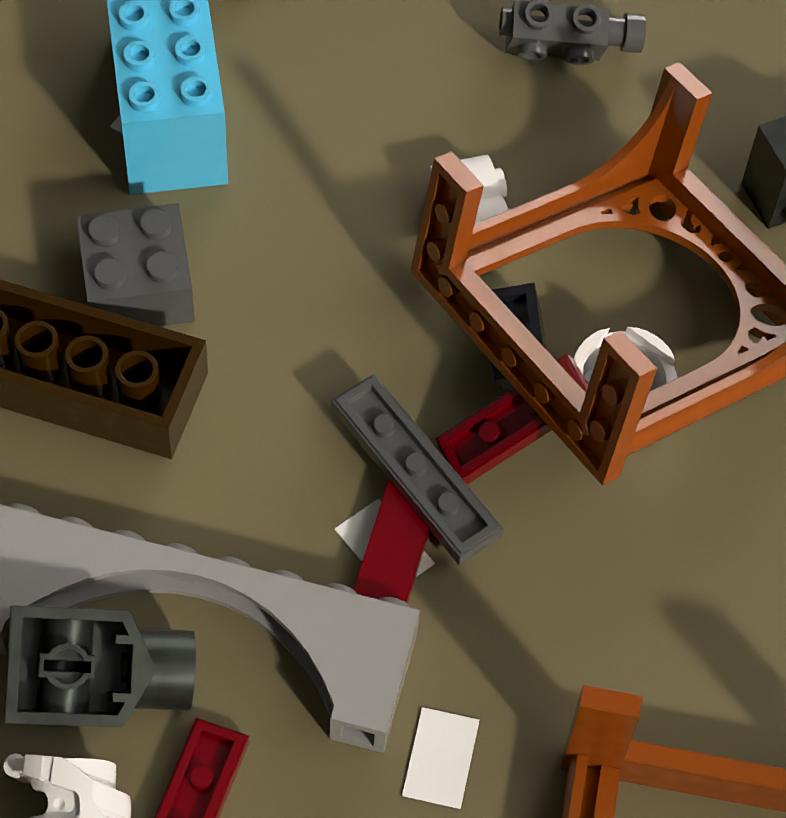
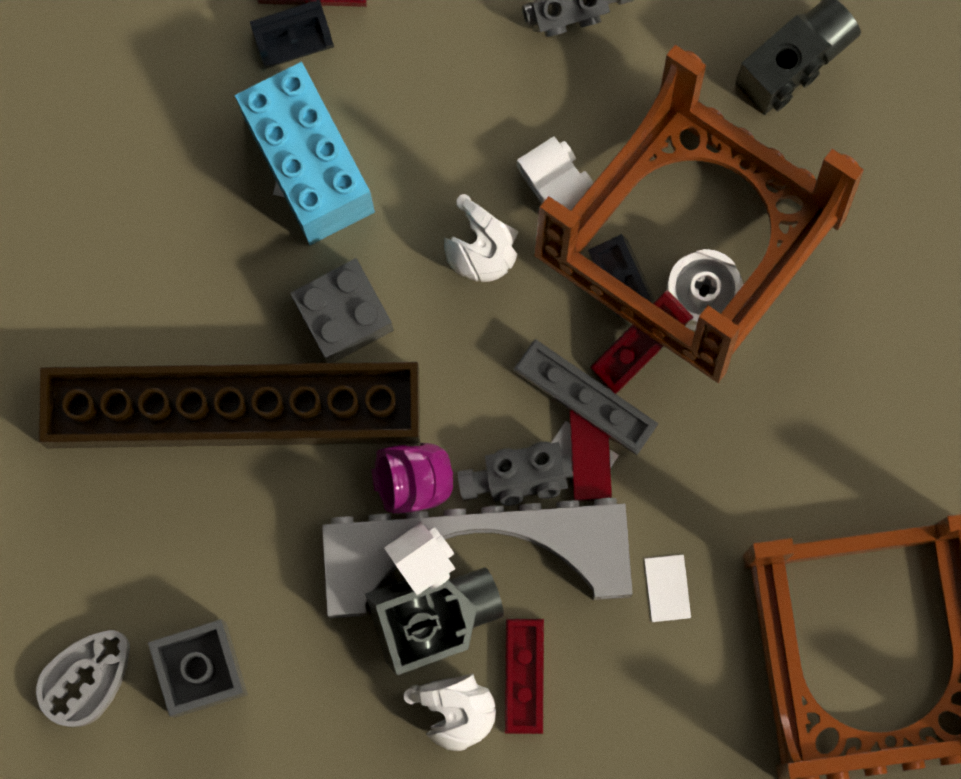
camera: 10 degrees left, 20 degrees up
(105, 568) = (422, 557): none -> white brick
(143, 483) = (412, 477): none -> magenta helmet
(287, 532) = (518, 474): none -> dark grey brick
(355, 252) = (491, 252): none -> white helmet

